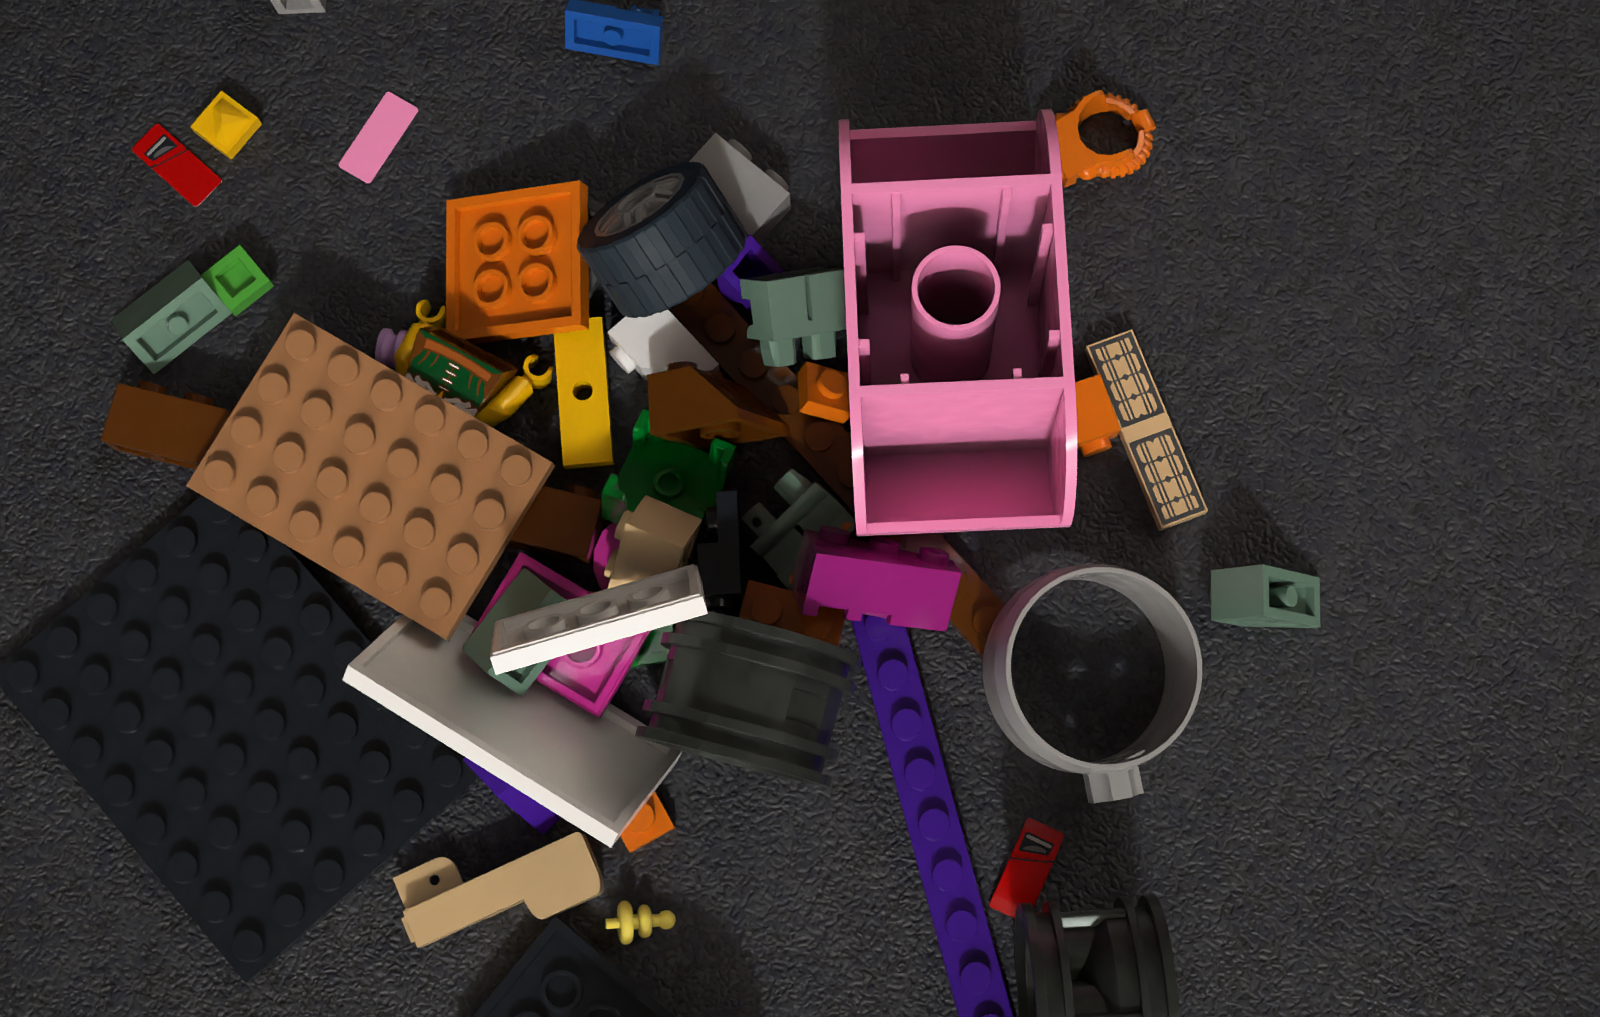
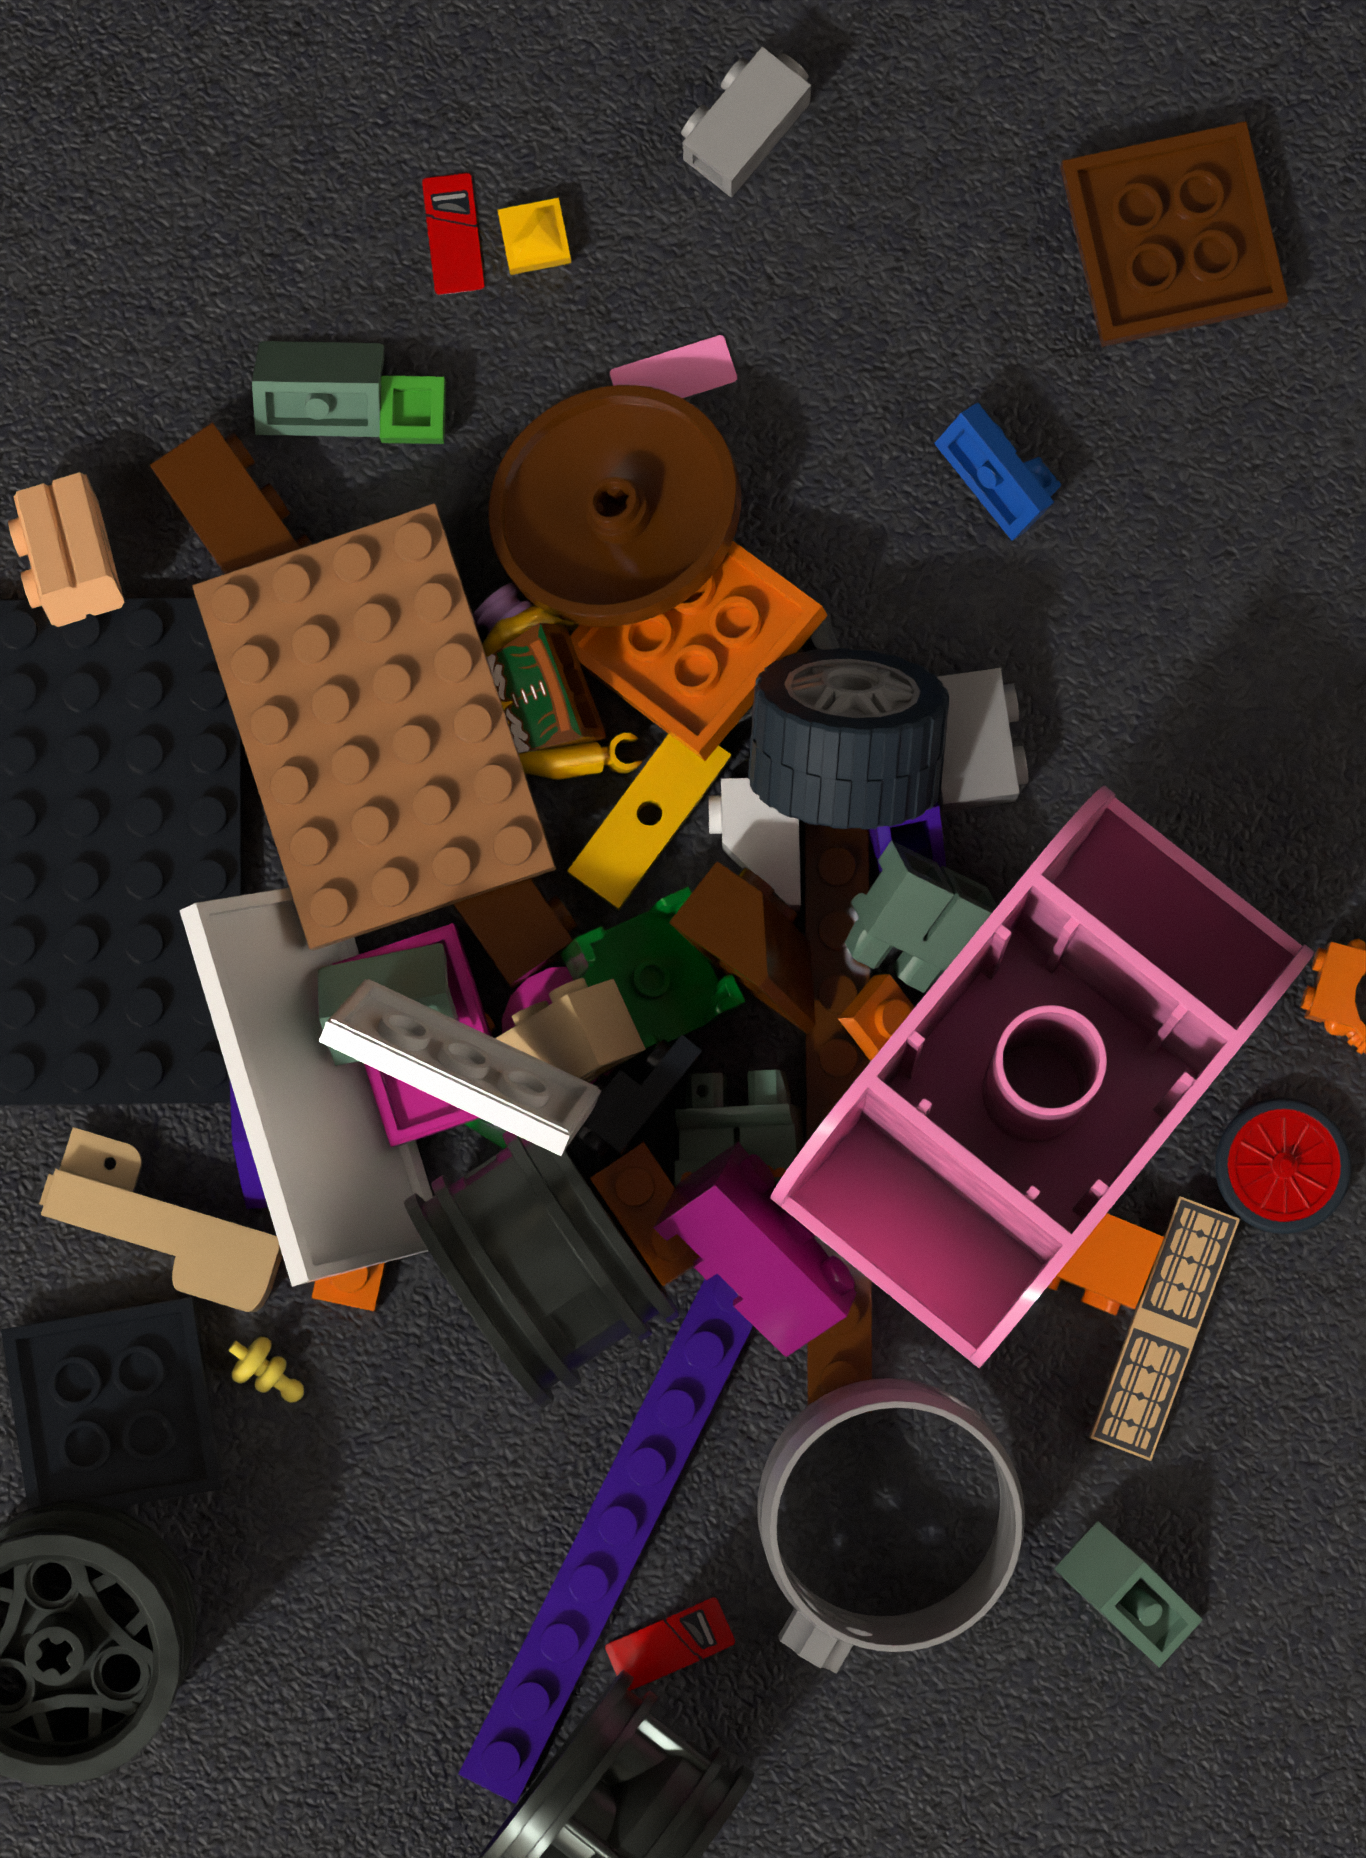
camera: 45 degrees right, 5 degrees up
(91, 533) = (67, 550): none -> light nougat brick
(406, 231) = (615, 505): none -> reddish brown dish
(1128, 279) = (1283, 1165): none -> red wheel

